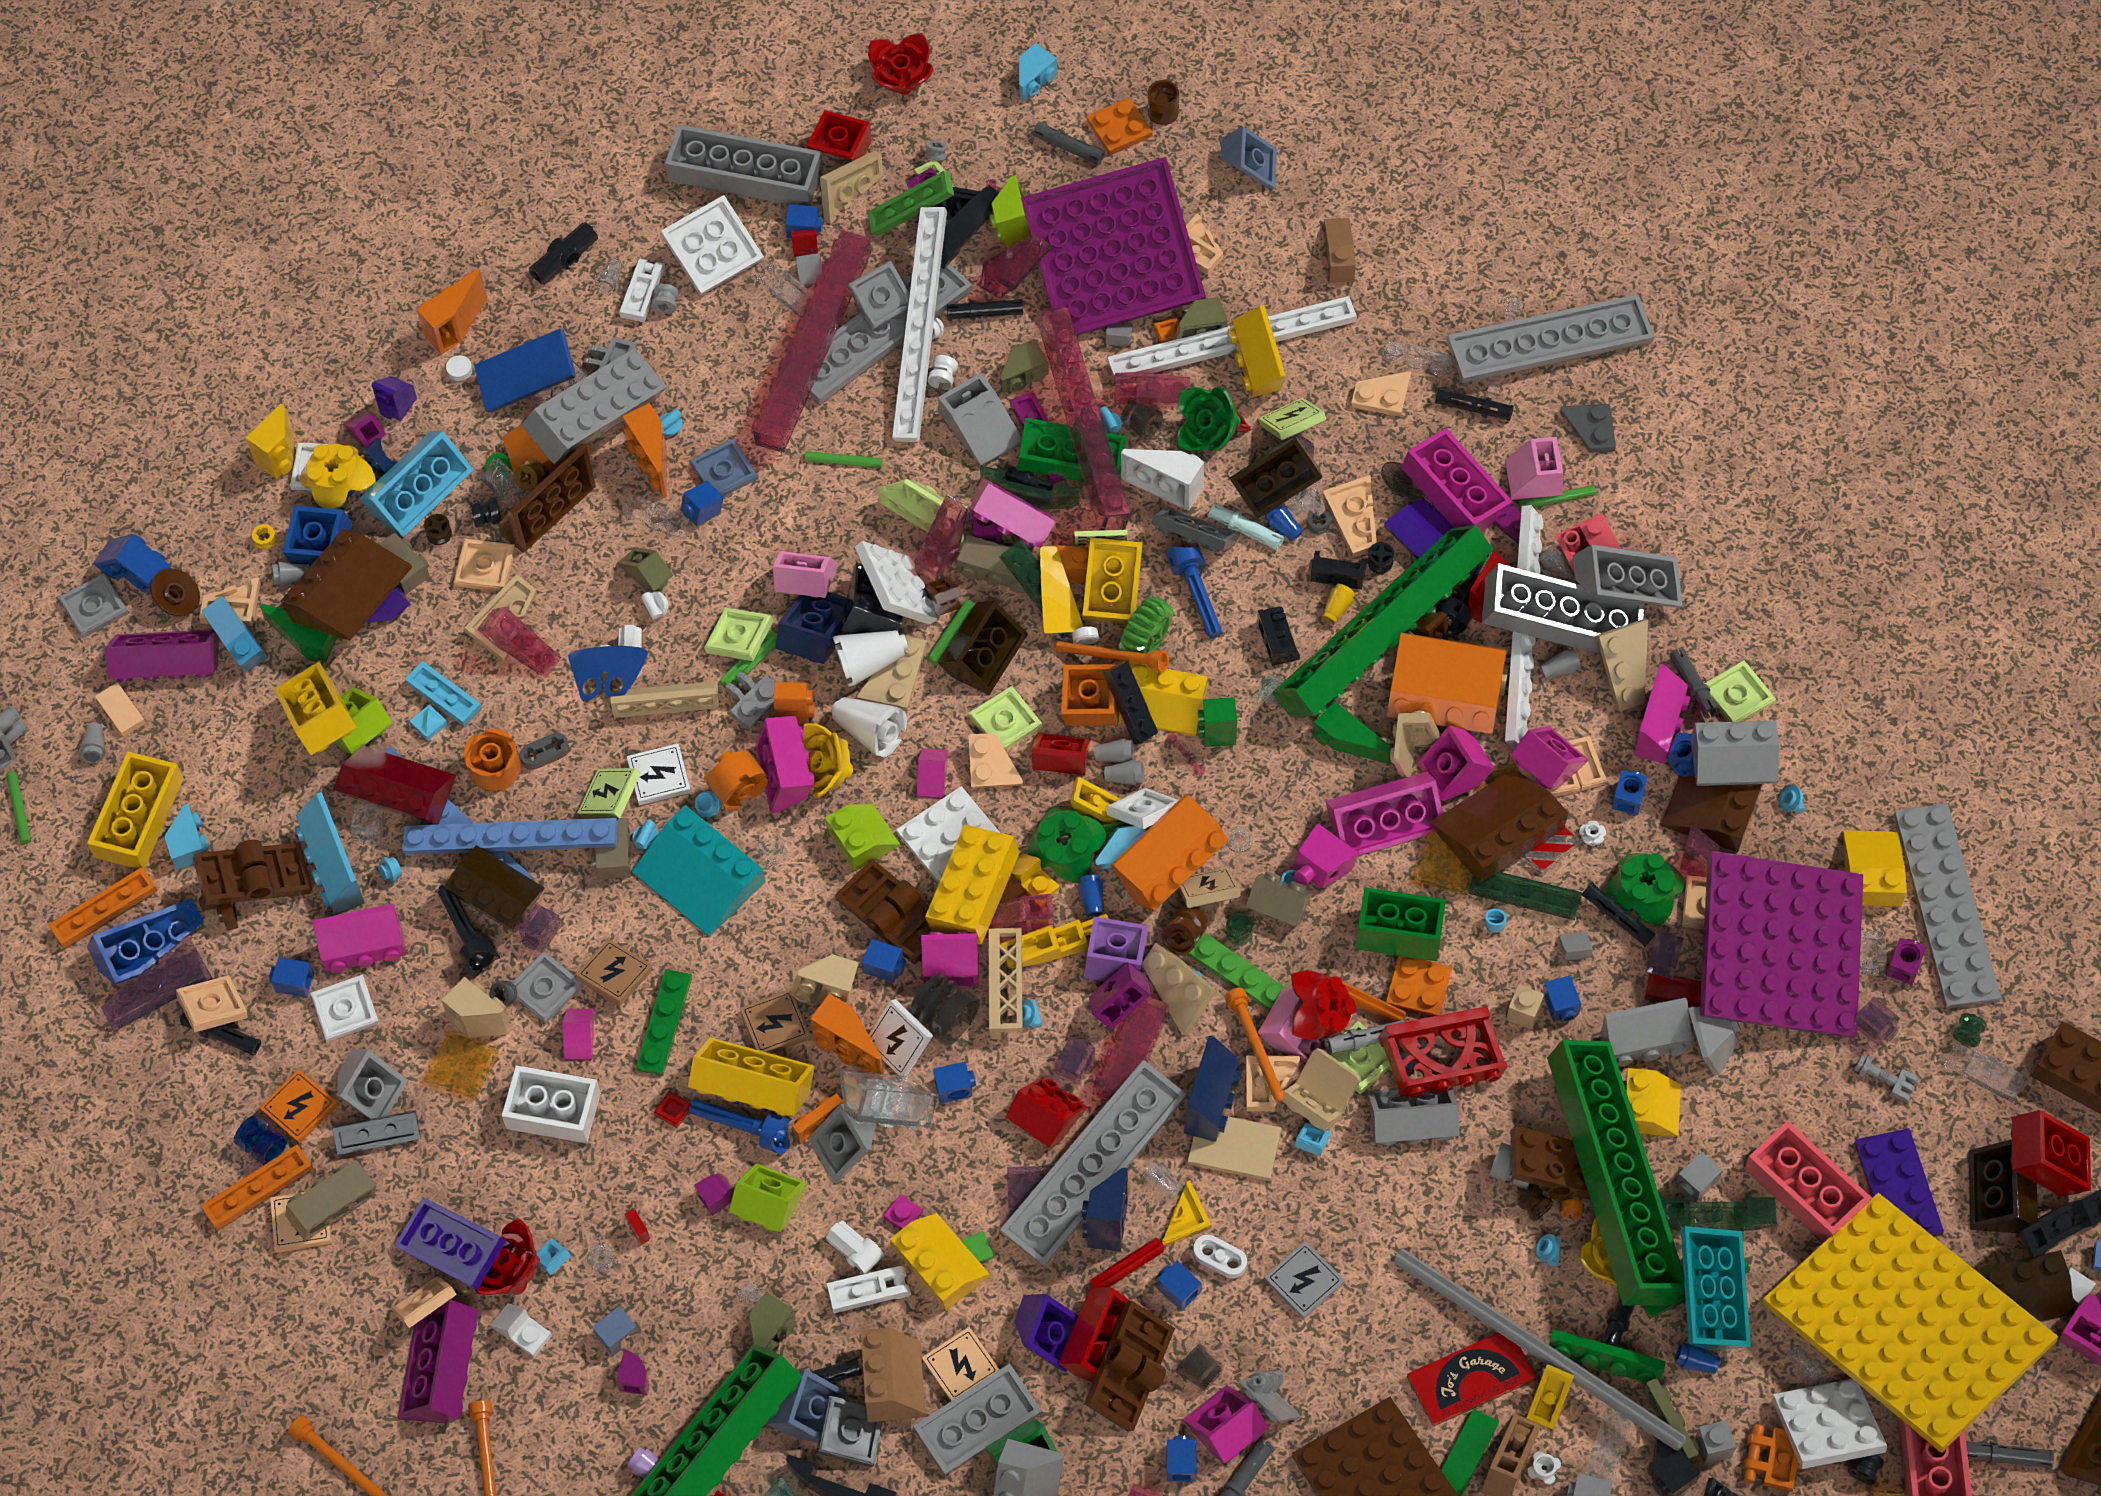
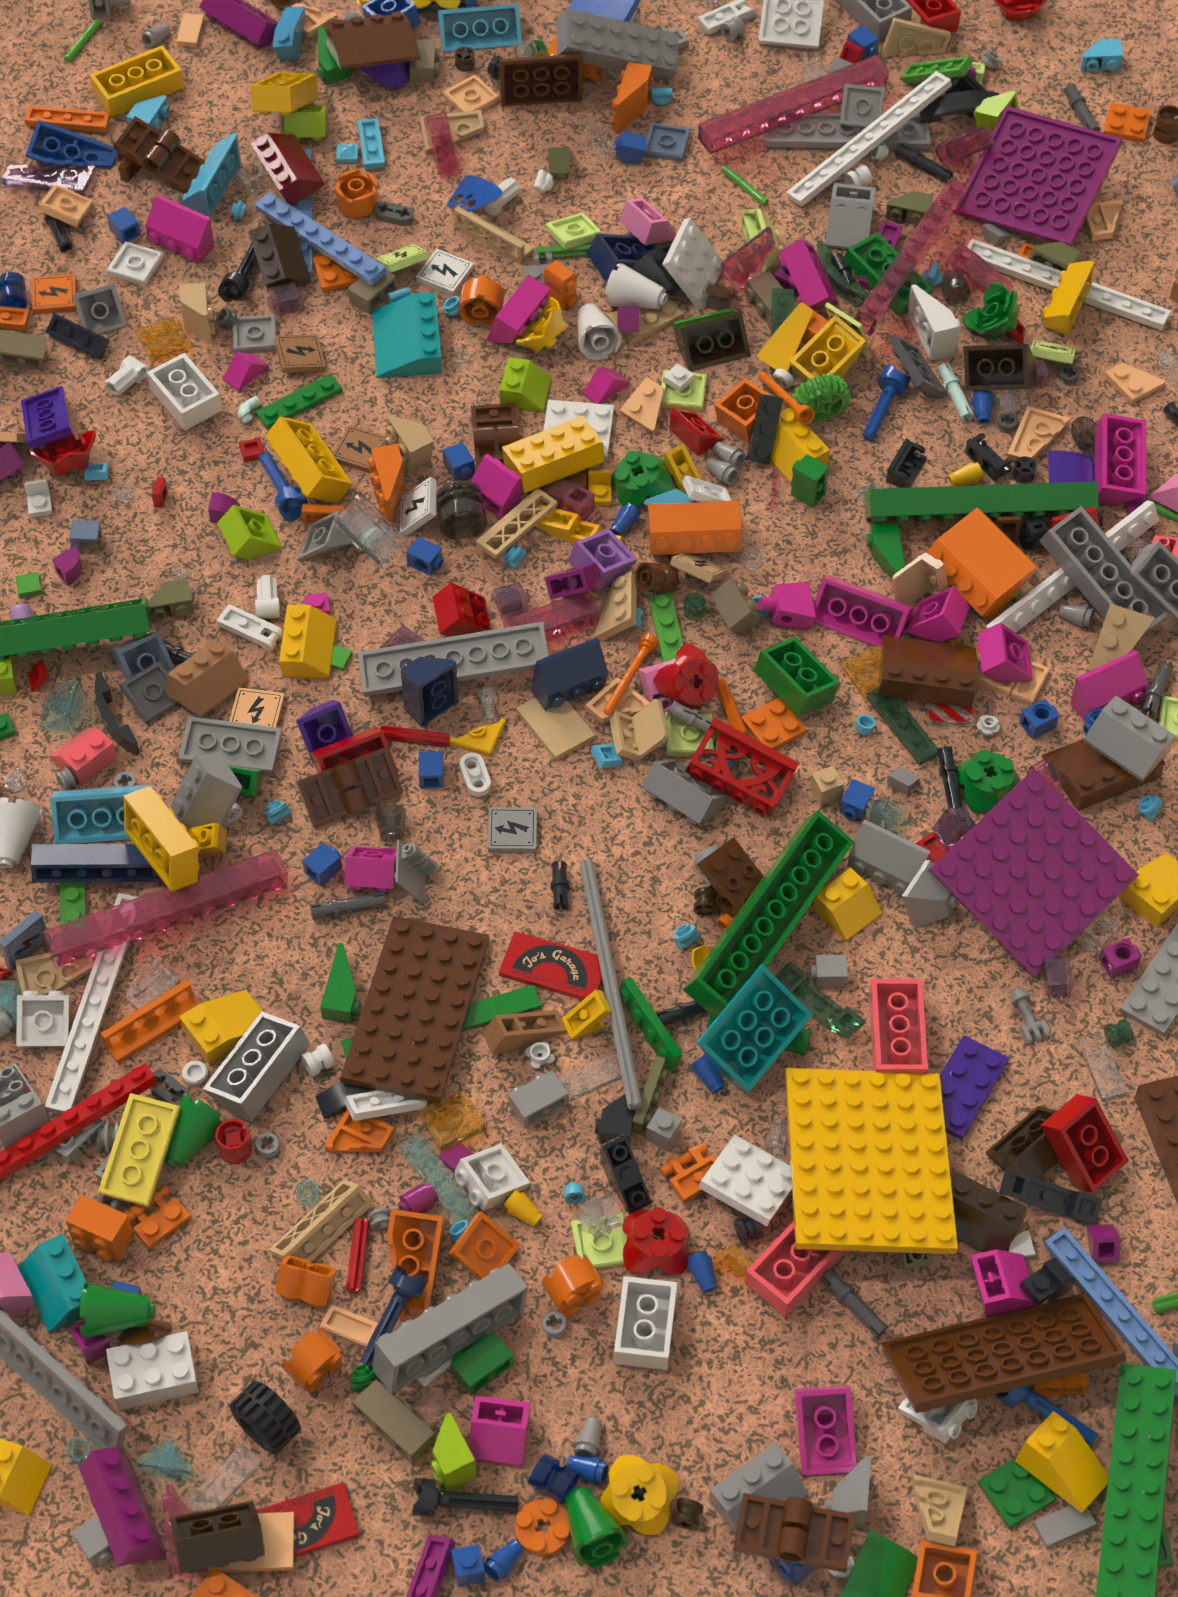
camera: 40 degrees right, 5 degrees down
(471, 1133) = (130, 372): none -> white piece
(553, 865) = (331, 274): none -> orange plate
(611, 1426) = (28, 585): none -> bright green tile
(622, 1073) = (246, 407): none -> light aqua arm
(891, 687) = (628, 318): none -> magenta brick
(993, 711) = (678, 378): none -> white plate
(1083, 1446) = (276, 811): none -> medium azure plate
(1321, 437) = (1069, 380): none -> dark grey bush
(1399, 1296) = (560, 885): none -> black pin
(1595, 992) = (883, 812): none -> clear light blue slope

